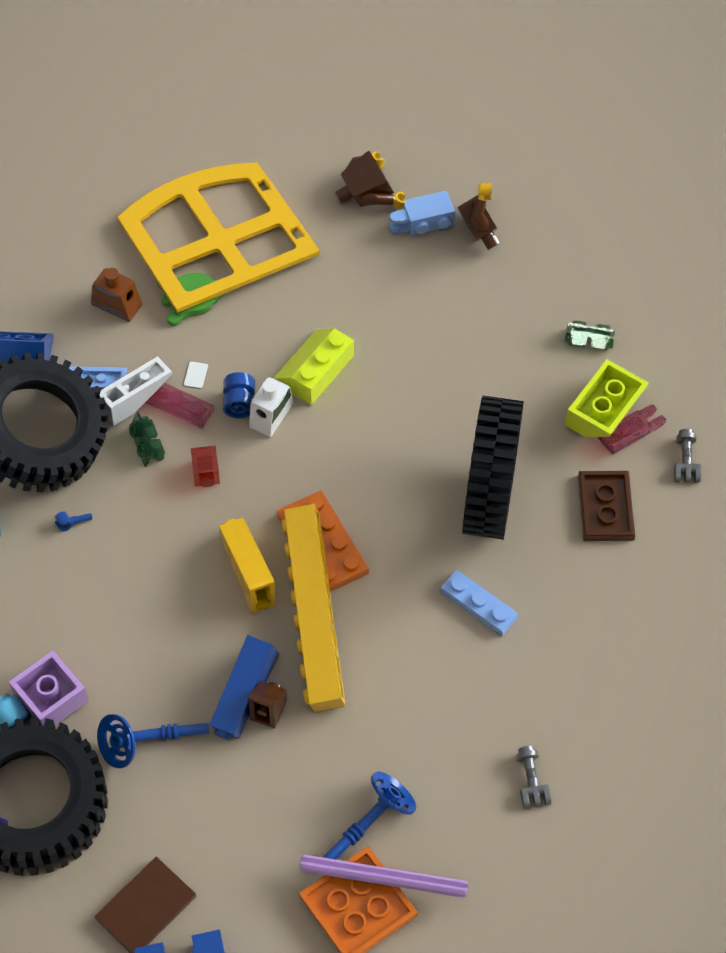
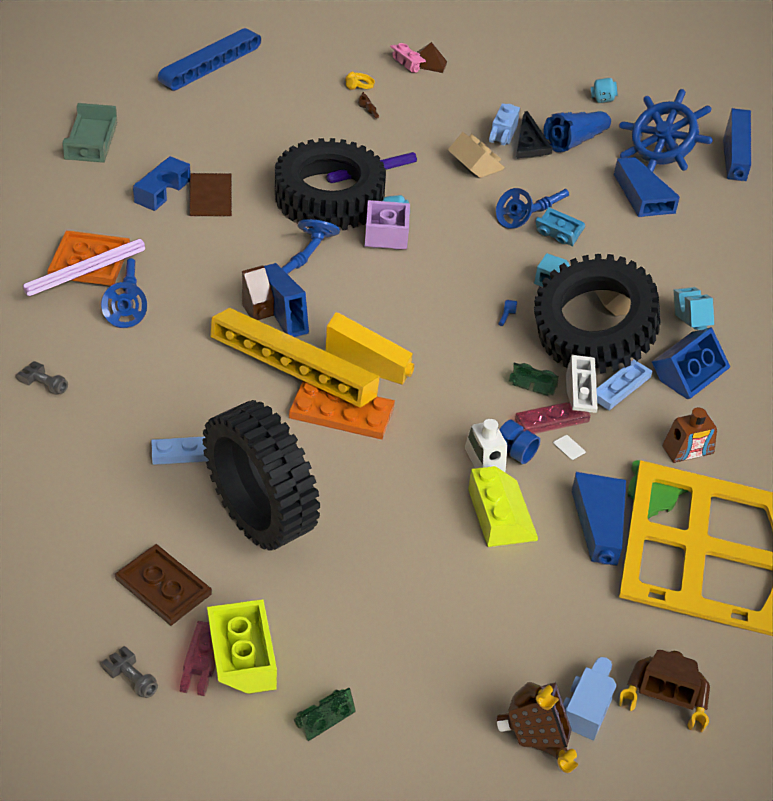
camera: 130 degrees right, 15 degrees down
(205, 466) = (474, 388): clear red brick -> none
(256, 302) = (601, 515): none -> blue slope

